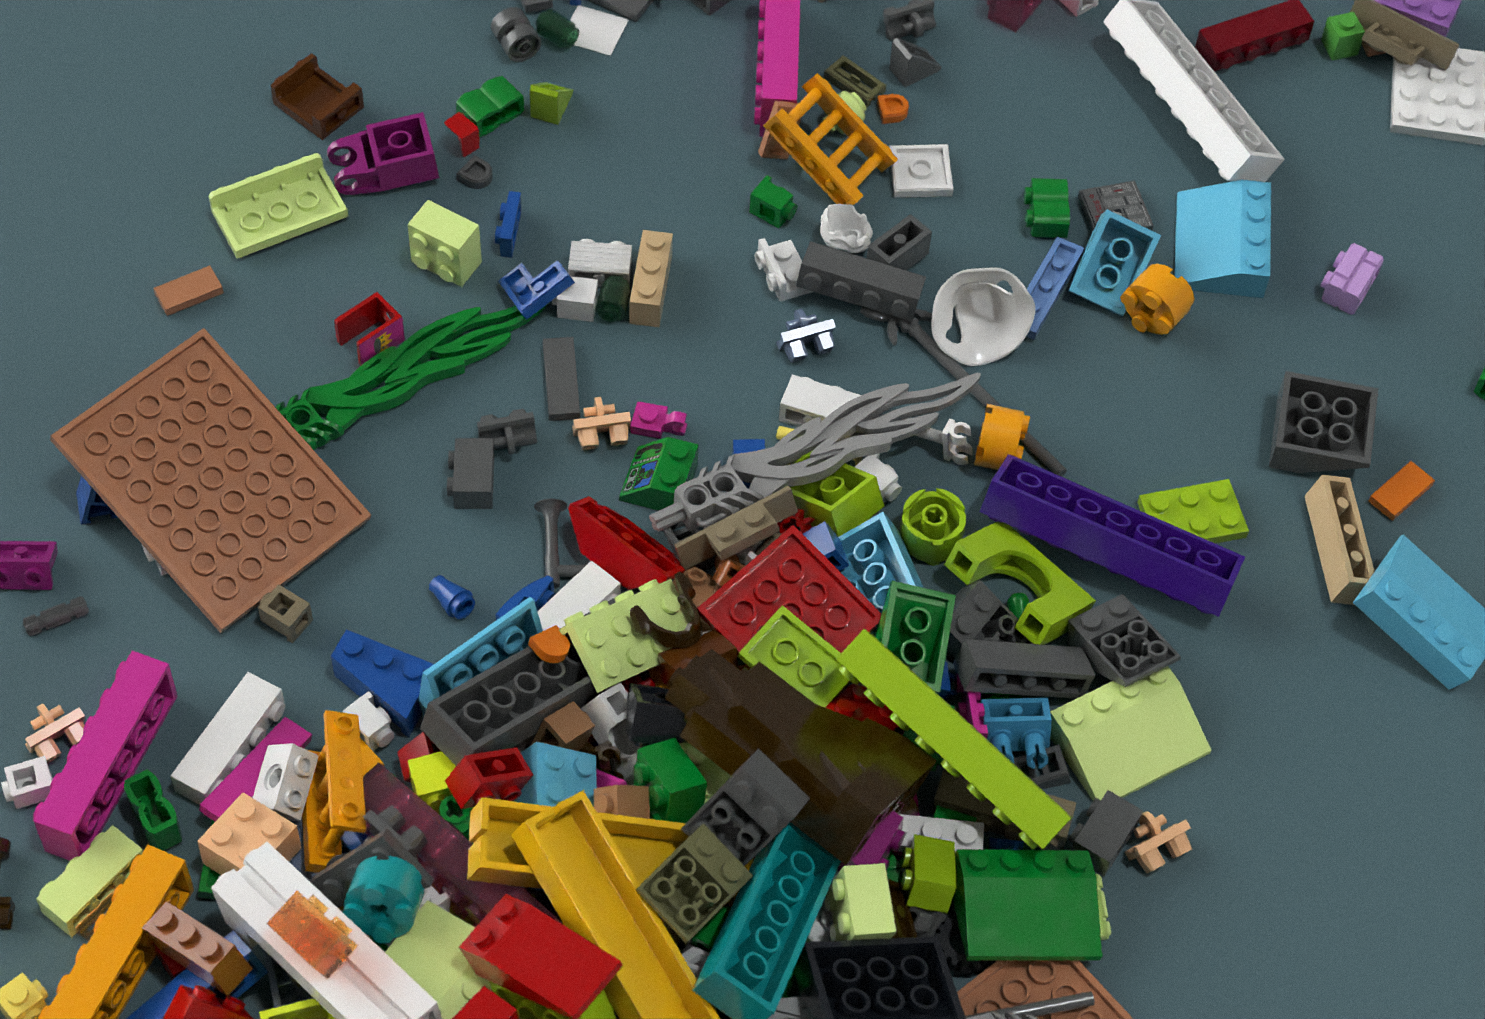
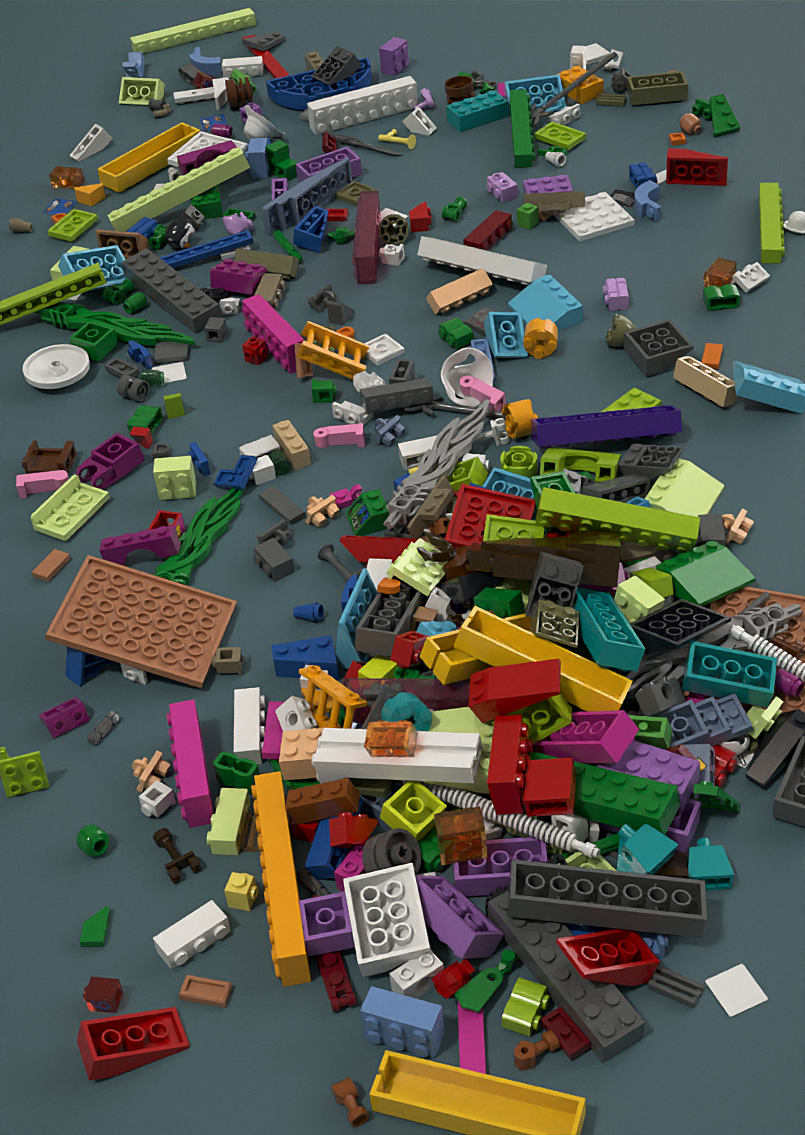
camera: 25 degrees left, 15 degrees down
(274, 132) = (40, 482): none -> bright pink leg
(339, 349) = (161, 541): none -> magenta arch
(734, 65) = (255, 350): none -> red brick
(734, 302) = (340, 435): none -> bright pink leg
(984, 330) = (482, 391): none -> bright pink leg
(1114, 131) = (459, 291): none -> light nougat brick
(1294, 355) = (620, 325): none -> olive piece

